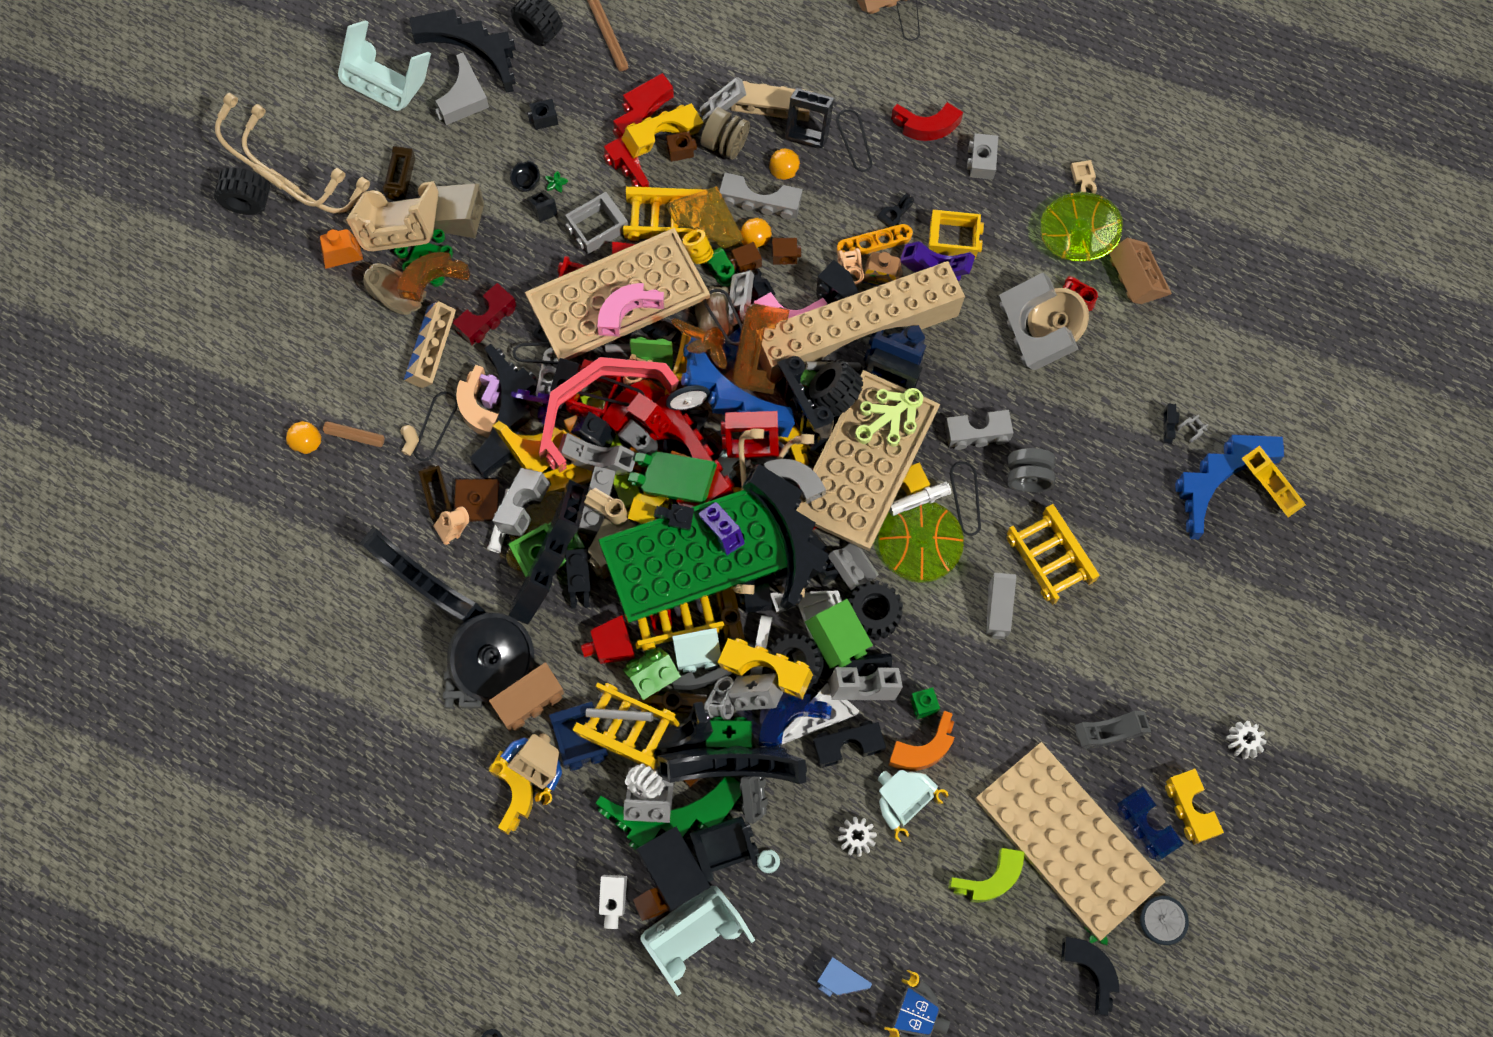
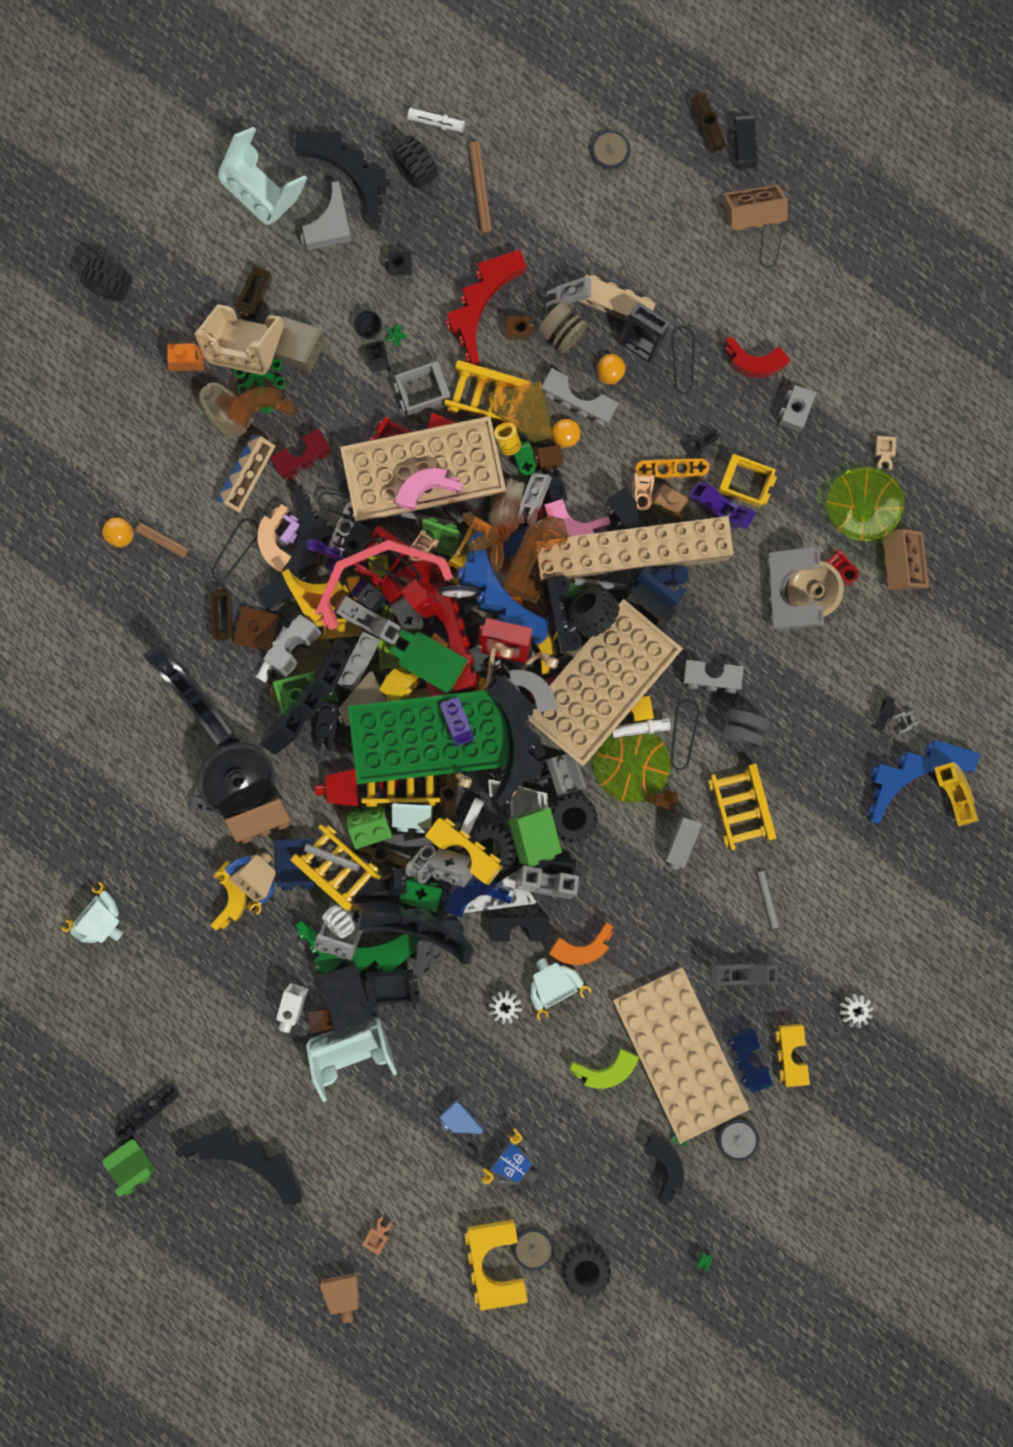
camera: 15 degrees right, 15 degrees up
(274, 177) = (142, 271): tan bar -> none
(364, 857) = (97, 920): none -> light aqua torso
(411, 439) = (211, 557): tan arm -> none
(451, 524) = (229, 649): light nougat piece -> none
(606, 505) = (362, 673): tan piece -> none
(640, 137) = (526, 304): yellow arch -> none
(679, 516) = (421, 703): black plate -> none
(716, 321) = (504, 516): black piece -> none
(768, 861) = (427, 1007): light aqua tile -> none
(785, 251) = (587, 459): reddish brown brick -> none
(891, 413) = (636, 648): yellowish green plant -> none
(924, 703) = (593, 910): green brick -> none
(965, 568) = (666, 801): none -> reddish brown bracket
(1110, 646) = (767, 899): none -> light grey bar

